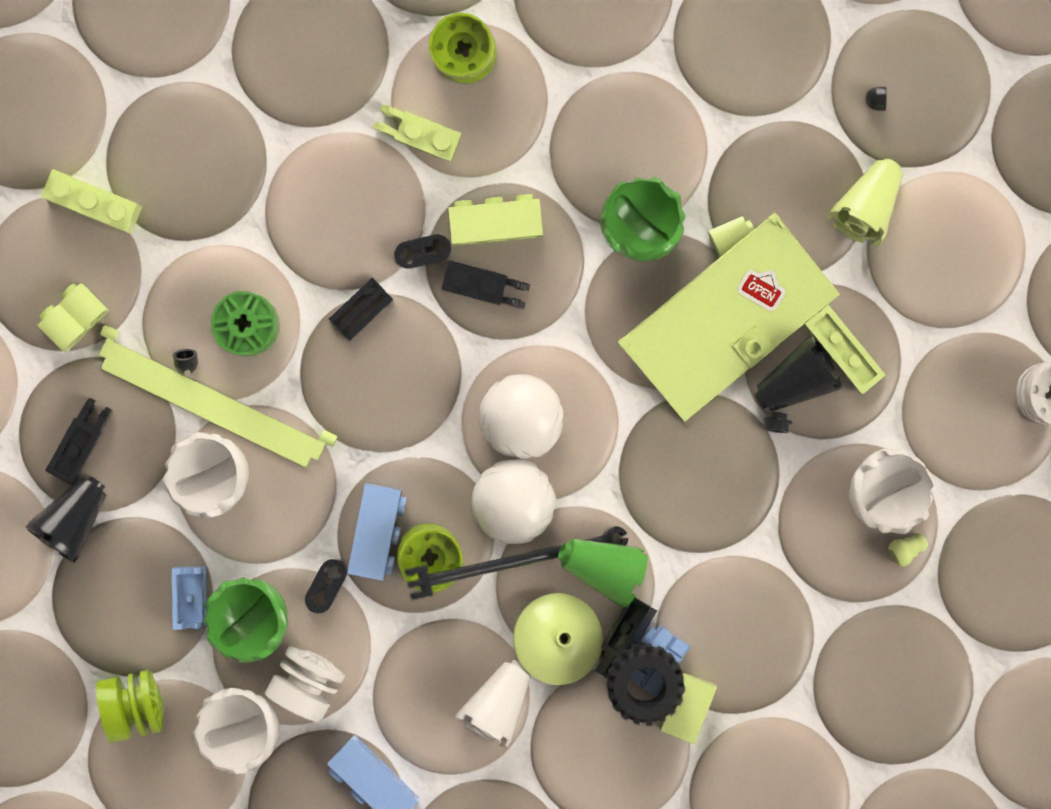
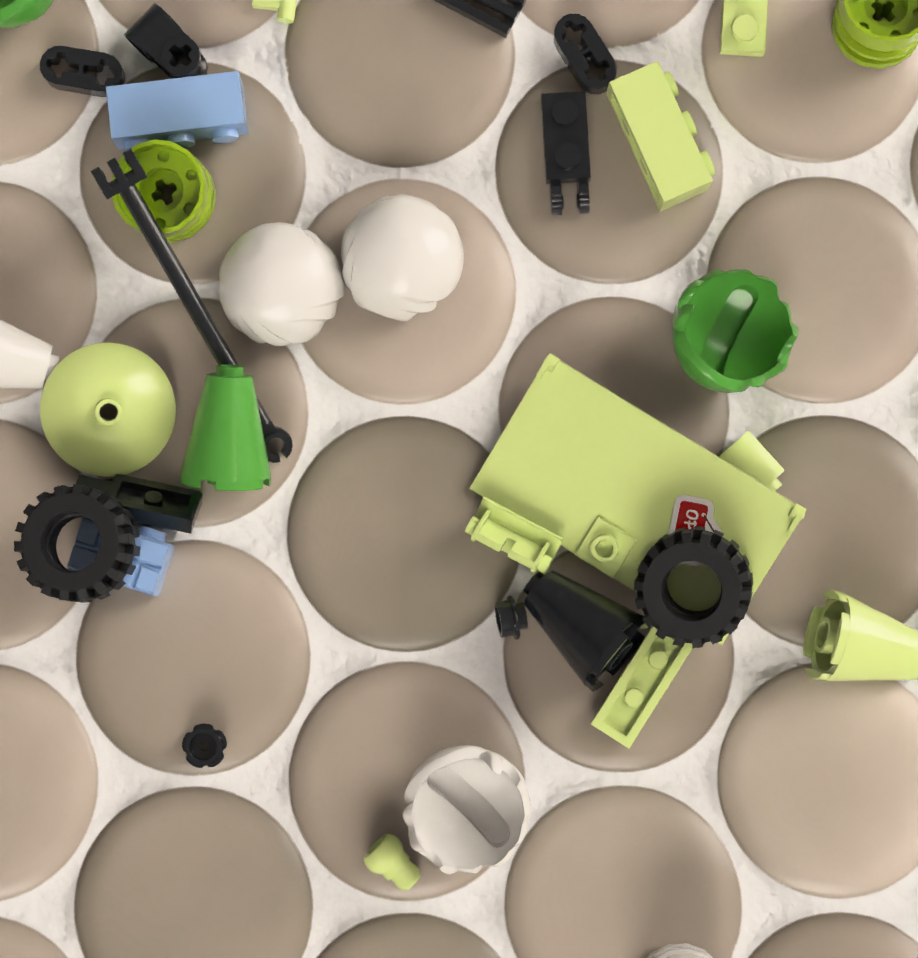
camera: 75 degrees right, 5 degrees down
(325, 527) = (165, 44): none -> black piece
(692, 712) = (67, 624): yellowish green brick -> none
(732, 397) = (515, 535): none -> yellowish green hinge
(798, 652) = (199, 757): none -> black plate
(820, 313) = (685, 624): none -> black tyre

